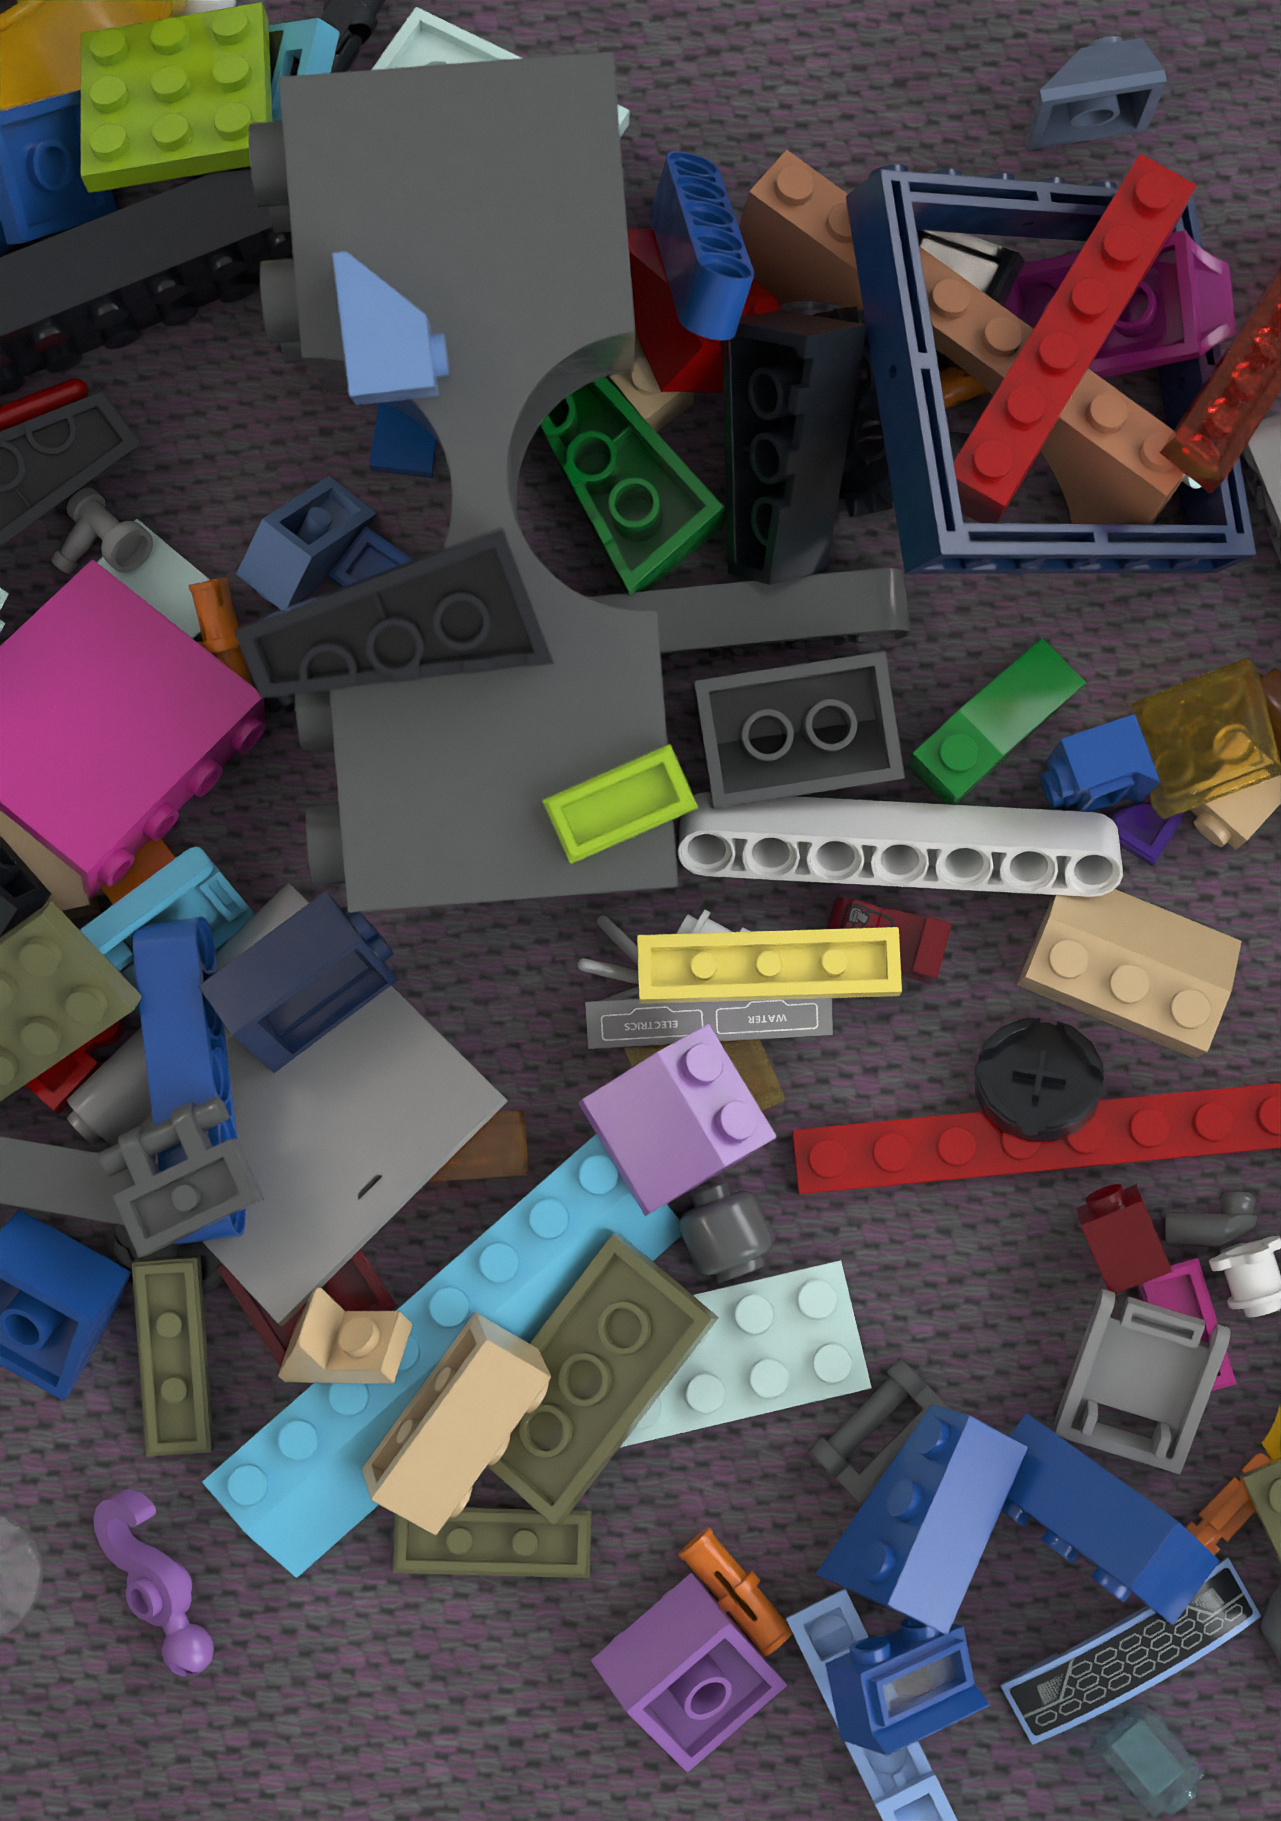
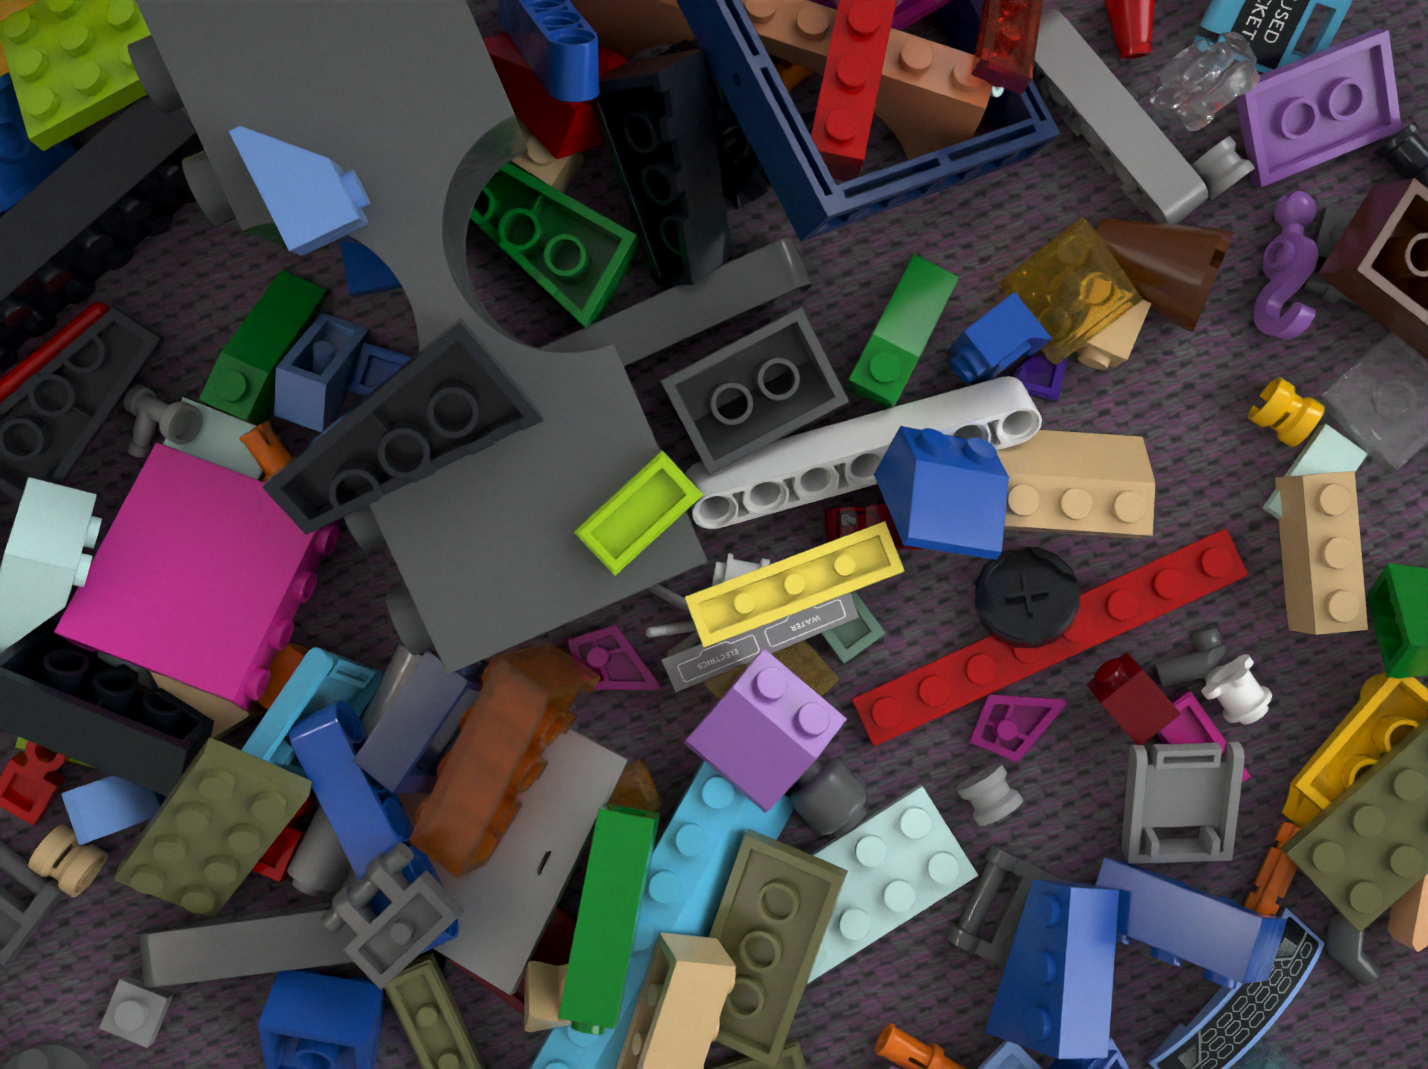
camera: 20 degrees left, 5 degrees up
(227, 508) = (246, 367): none -> green slope
(361, 1042) = (498, 754): none -> clear orange wedge
(428, 1257) = (608, 917): none -> green slope
(523, 990) = (613, 659): none -> magenta piece
(820, 1055) = (855, 635): none -> sand green plate
(917, 1296) = (990, 794): none -> light grey wheel
(974, 1224) = (1013, 723): none -> magenta piece
(980, 917) = (945, 492): none -> blue slope

